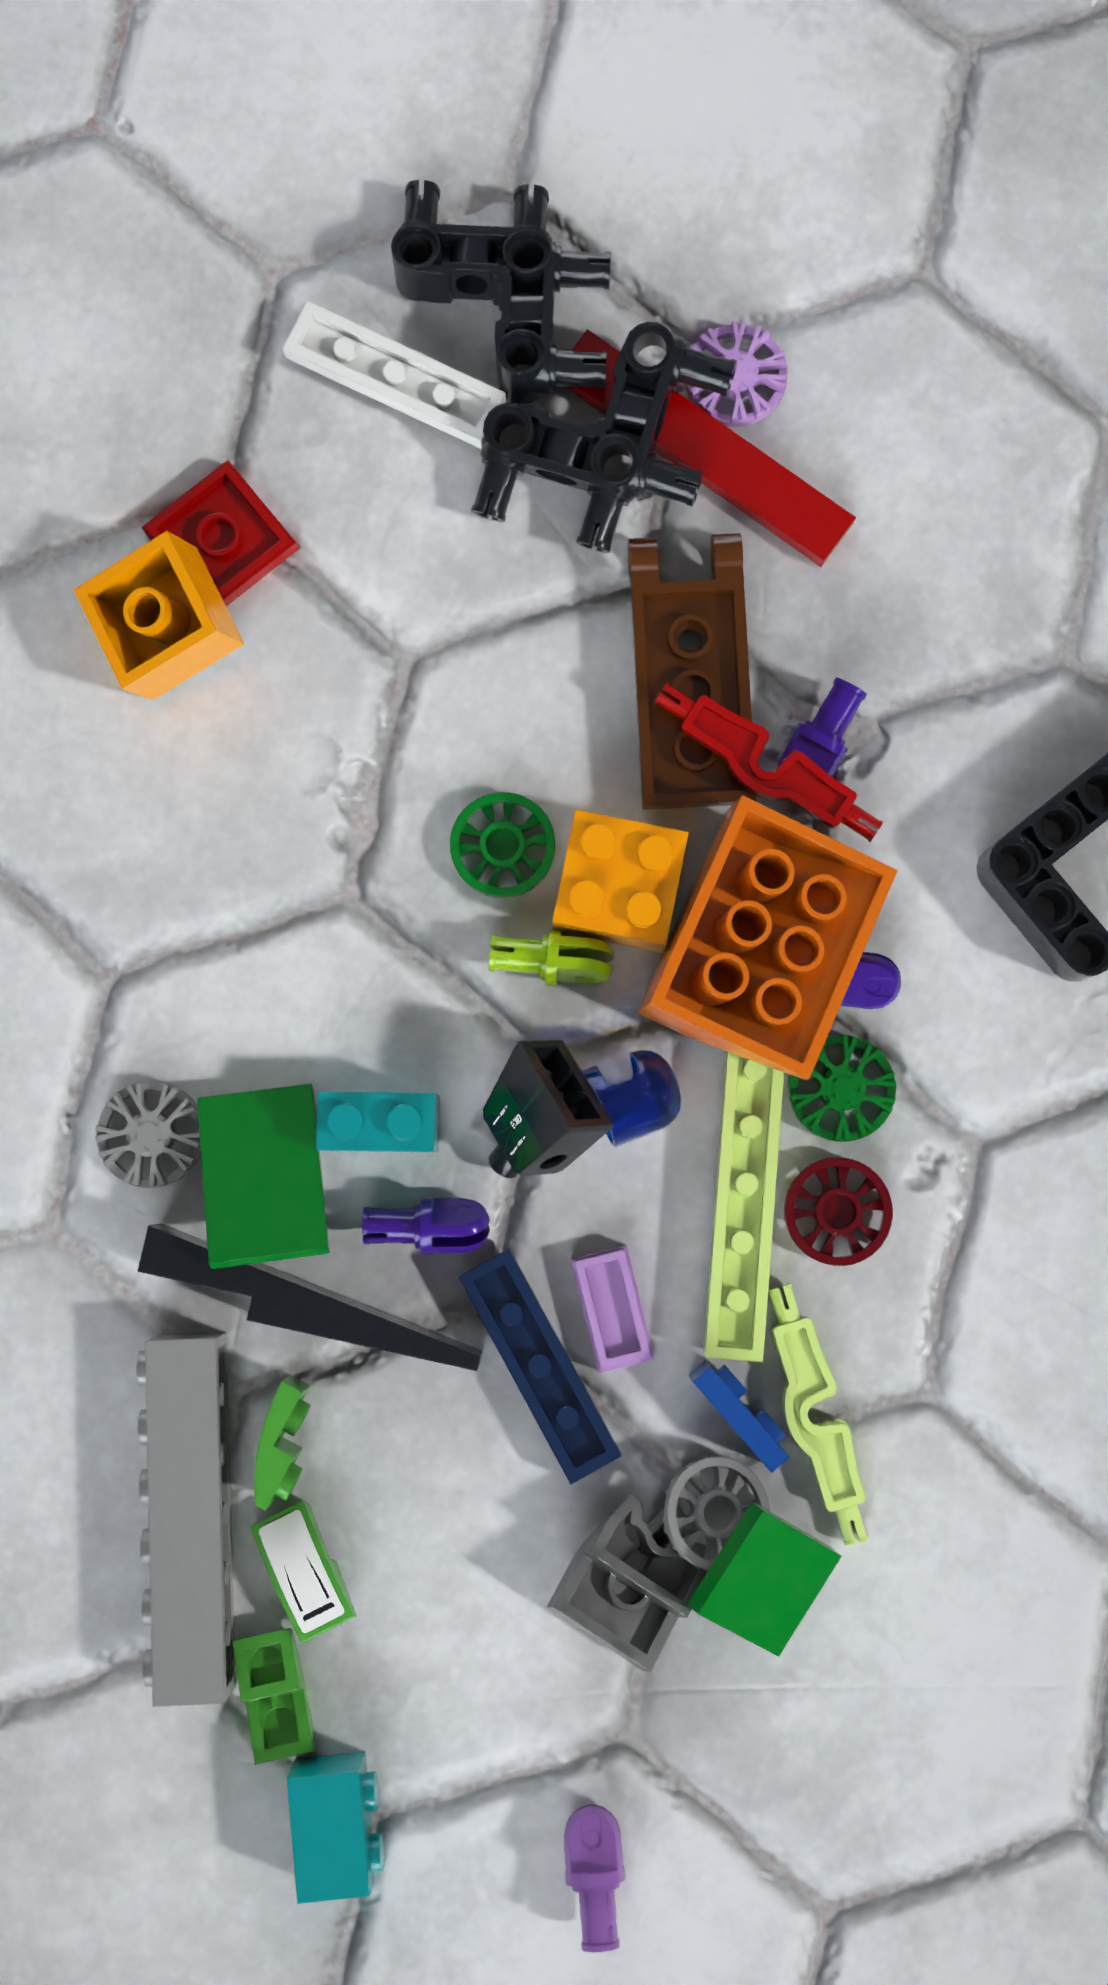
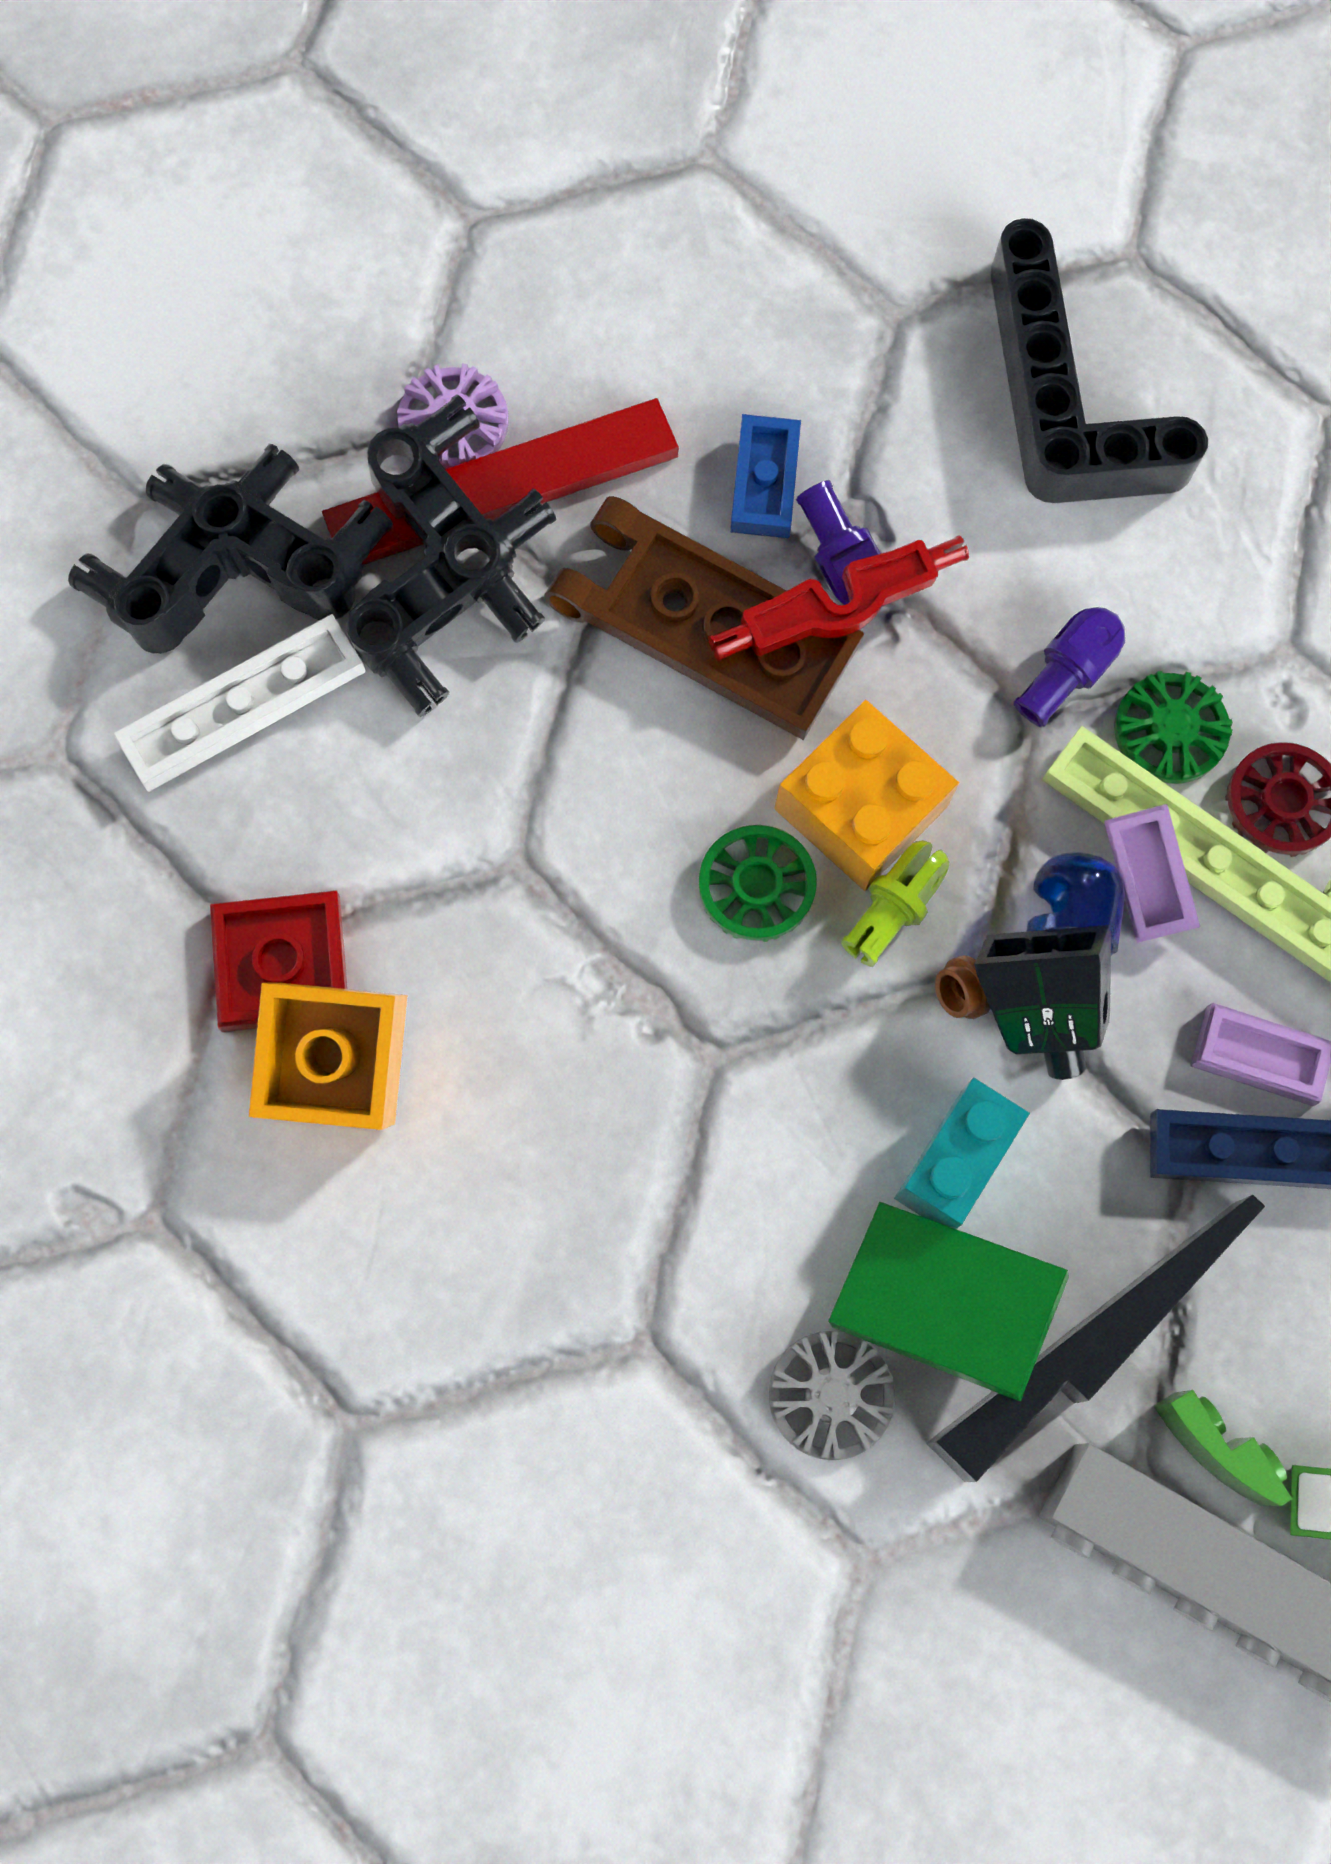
camera: 65 degrees left, 10 degrees down
(433, 1225) = (1089, 1170): dark purple arm -> none
(507, 1040) = (960, 989): none -> dark orange plate
(699, 1138) = (1152, 873): none -> lavender tile
(768, 940) = (1005, 698): orange slope -> none
(844, 643) = (765, 476): none -> blue plate

